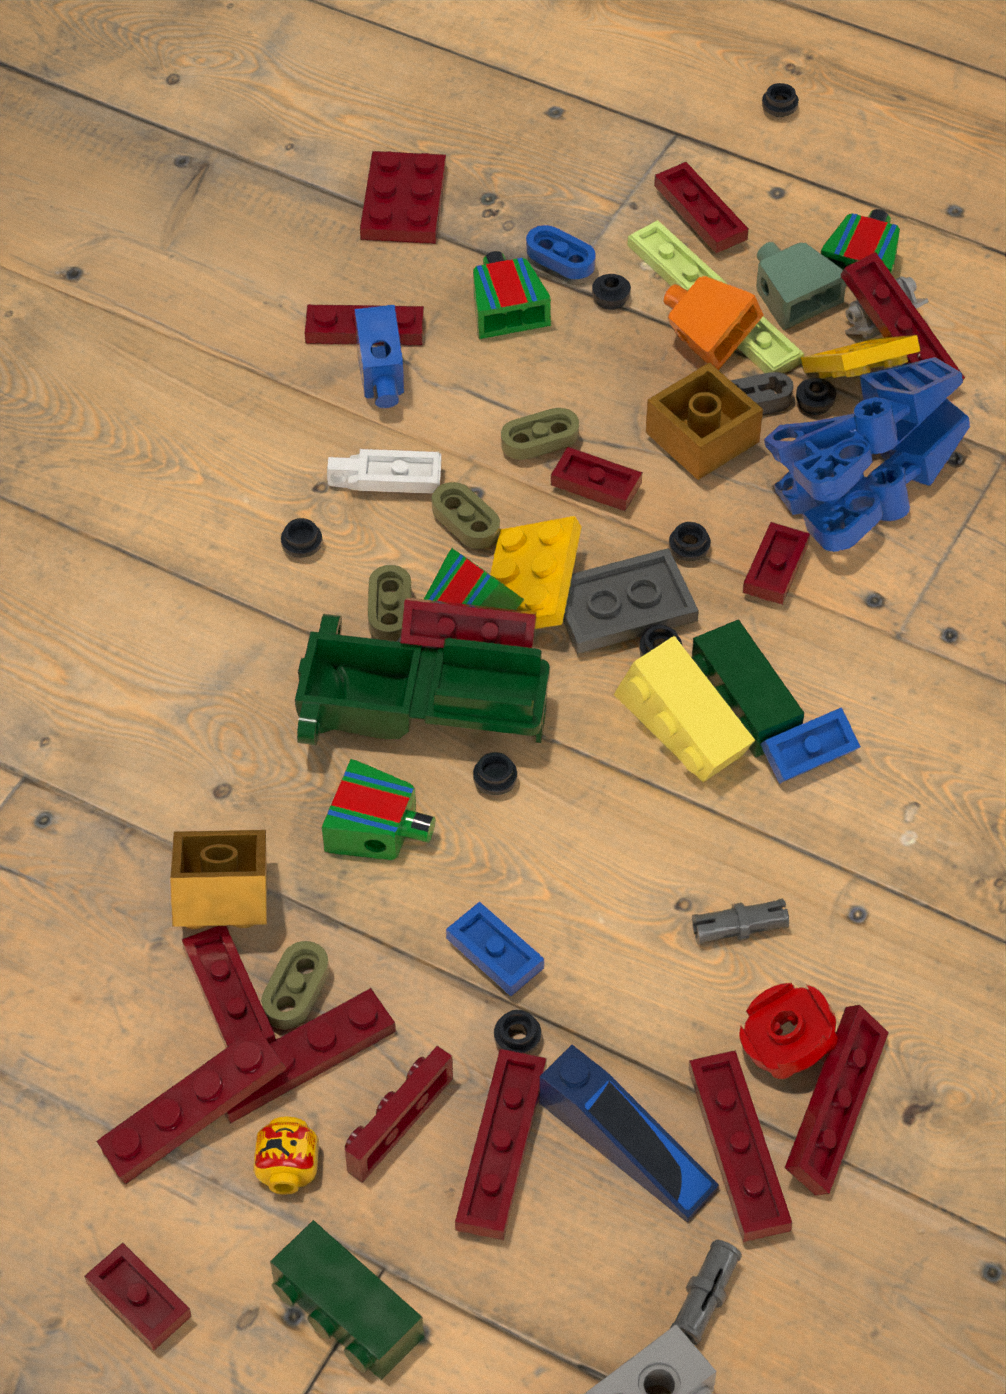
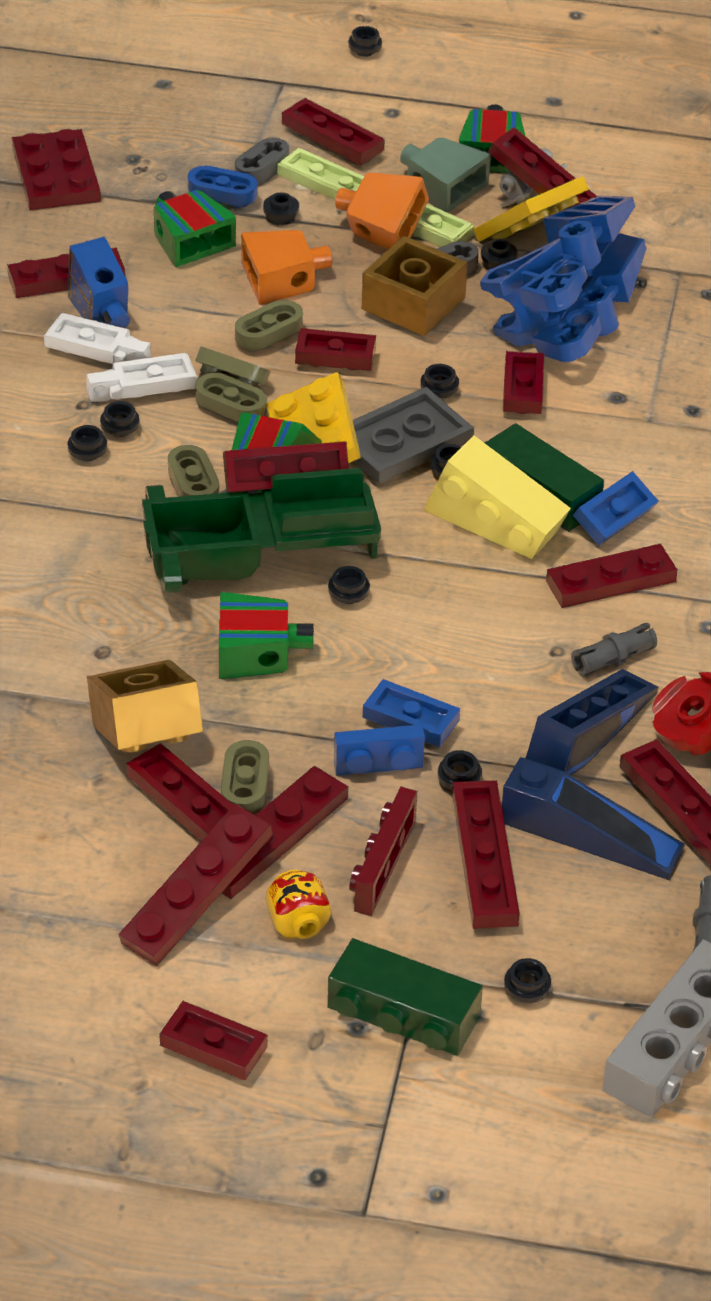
camera: 20 degrees left, 10 degrees down
(345, 516) = (119, 419): none -> black plate
(357, 416) = (95, 340): none -> white hinge
(441, 987) = (379, 750): none -> blue plate
(474, 473) = (220, 363): none -> olive plate
(484, 1300) = (527, 981): none -> black plate
(582, 362) = (281, 263): none -> orange torso
(611, 230) = (262, 159): none -> dark grey beam
(665, 1012) = (584, 724): none -> dark blue slope
(776, 825) = (611, 575): none -> dark red plate

